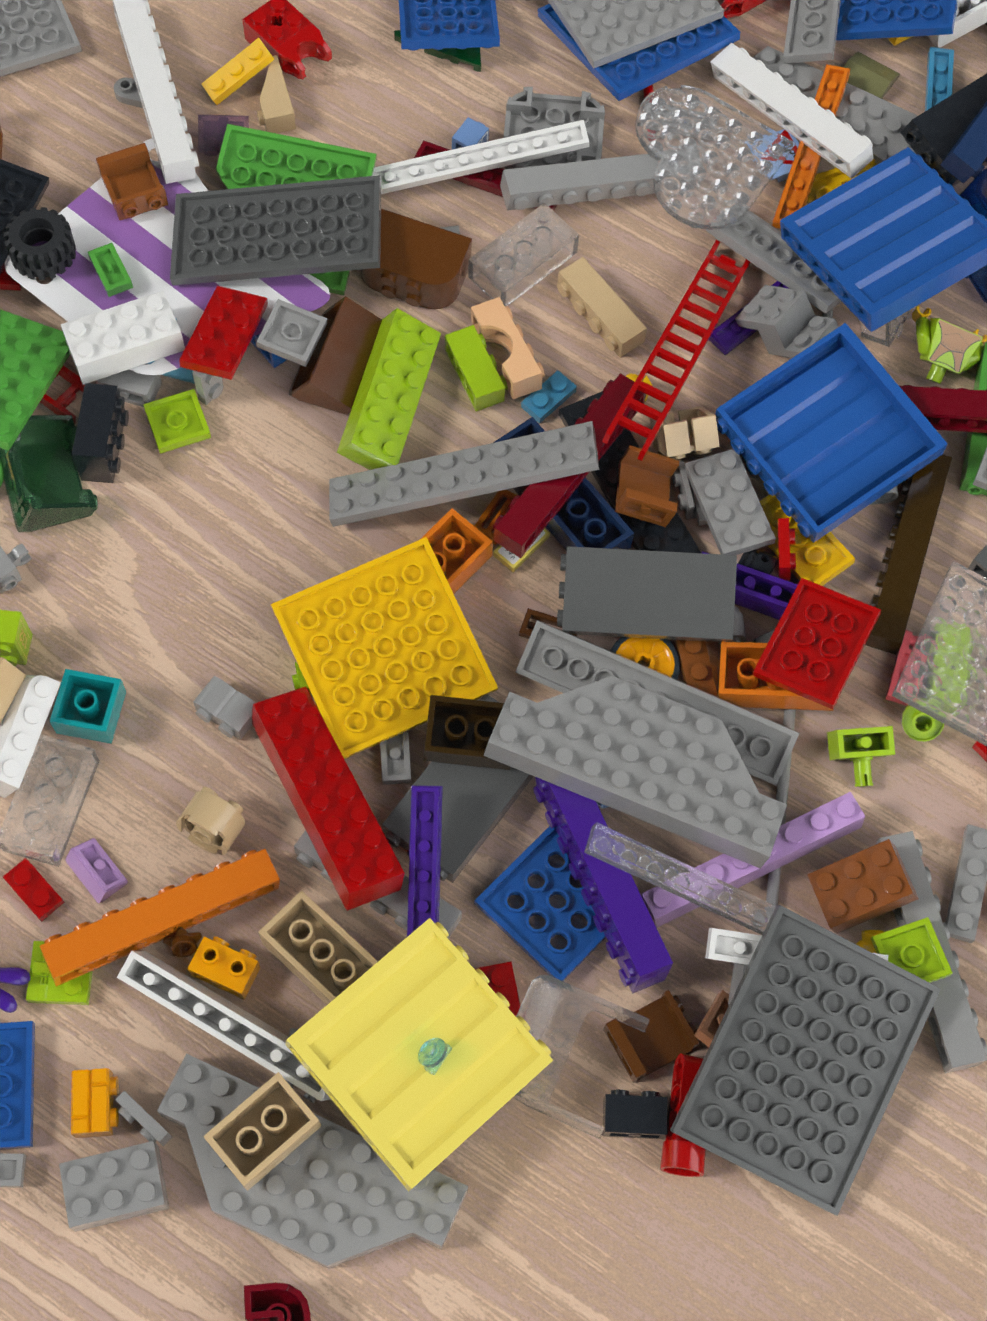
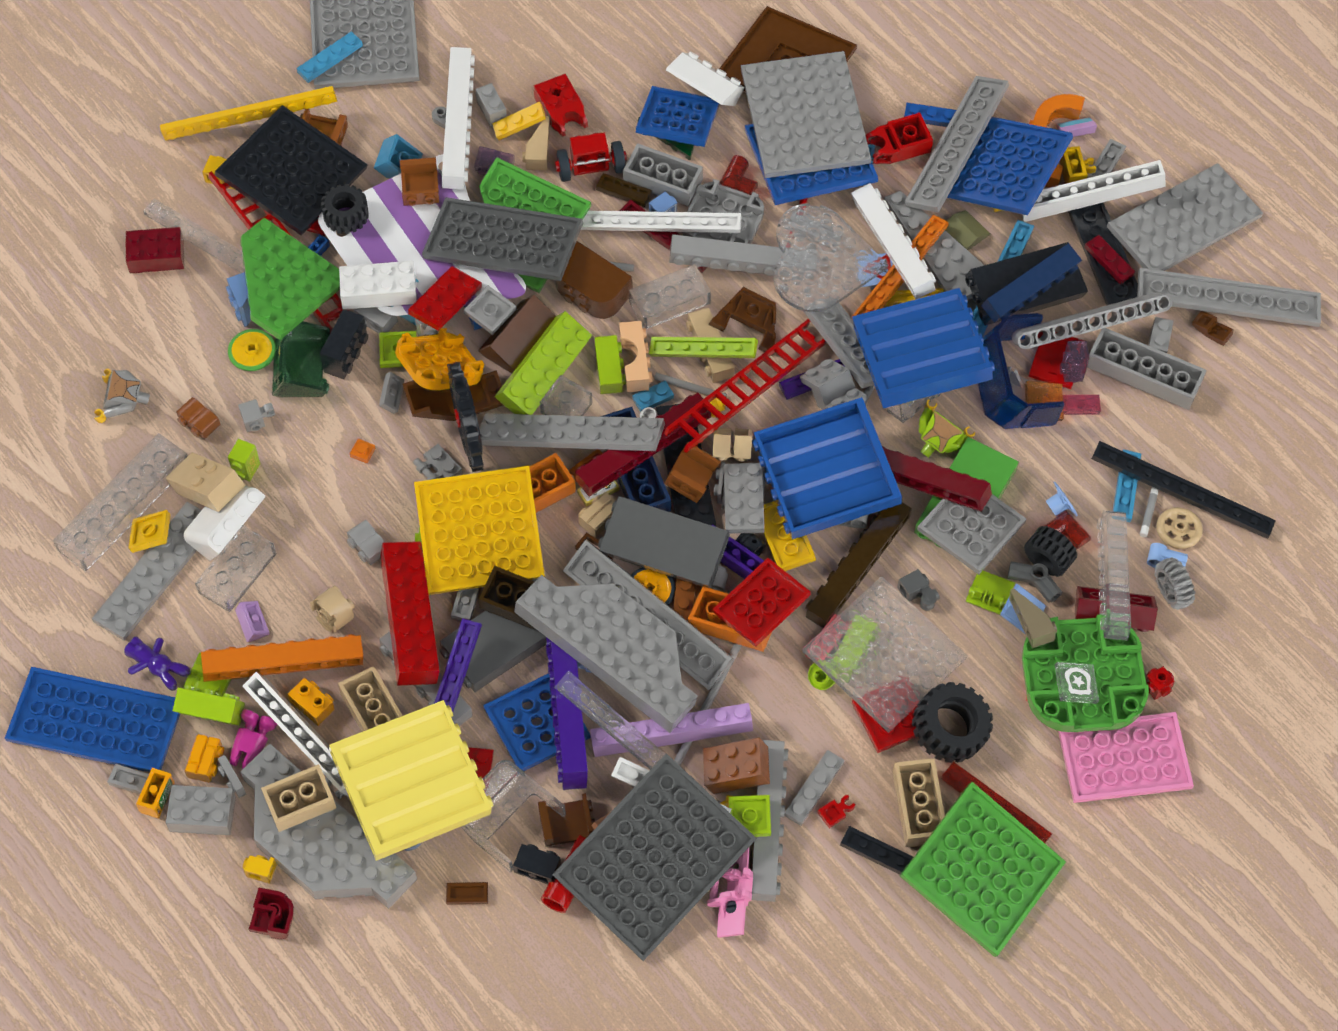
camera: 20 degrees right, 5 degrees down
(18, 303) = (319, 245): none -> blue piece
(33, 889) = (209, 621): red plate -> none
(36, 1182) = (155, 793): none -> light orange brick
(76, 1022) = (208, 705): none -> lime brick
(78, 157) = (390, 154): none -> dark azure slope
(88, 706) = (279, 517): teal brick -> none
(110, 269) = (385, 237): bright green plate -> none
(153, 1057) = (249, 741): none -> dark pink piece
(174, 577) = (362, 450): none -> orange plate
(183, 943) = (287, 682): reddish brown plate -> none
(188, 484) = (391, 392): none -> light grey plate
(191, 58) = (490, 103): none -> light grey brick
(231, 1249) = (259, 868): none -> yellow brick
(242, 422) = (428, 358): none -> light orange tile
(282, 470) = (439, 404): none -> reddish brown windscreen
(291, 564) = (440, 461): none -> light grey plate
(315, 489) = (465, 416): none -> black gear
(352, 93) = (590, 155): none -> brick
(409, 129) = (623, 189): none -> dark brown plate
(433, 1054) = (416, 780): clear light blue plate -> none
(436, 430) = (566, 399): none -> clear brick
(453, 94) = (663, 173): none -> light grey brick
(537, 578) = (595, 516): none -> tan brick
(546, 76) = (734, 176): none -> clear red brick
(548, 1190) = (467, 893): none -> reddish brown tile
(553, 421) = (648, 413): none -> white plate
(586, 369) = (684, 384): none -> light grey bar
(599, 311) = (703, 347): none -> lime plate
(640, 248) = (751, 311): none -> reddish brown wing
(786, 537) = (767, 542): red plate -> none
(860, 747) = (772, 680): lime brick -> none
(931, 1089) = (734, 901): none -> bright pink piece

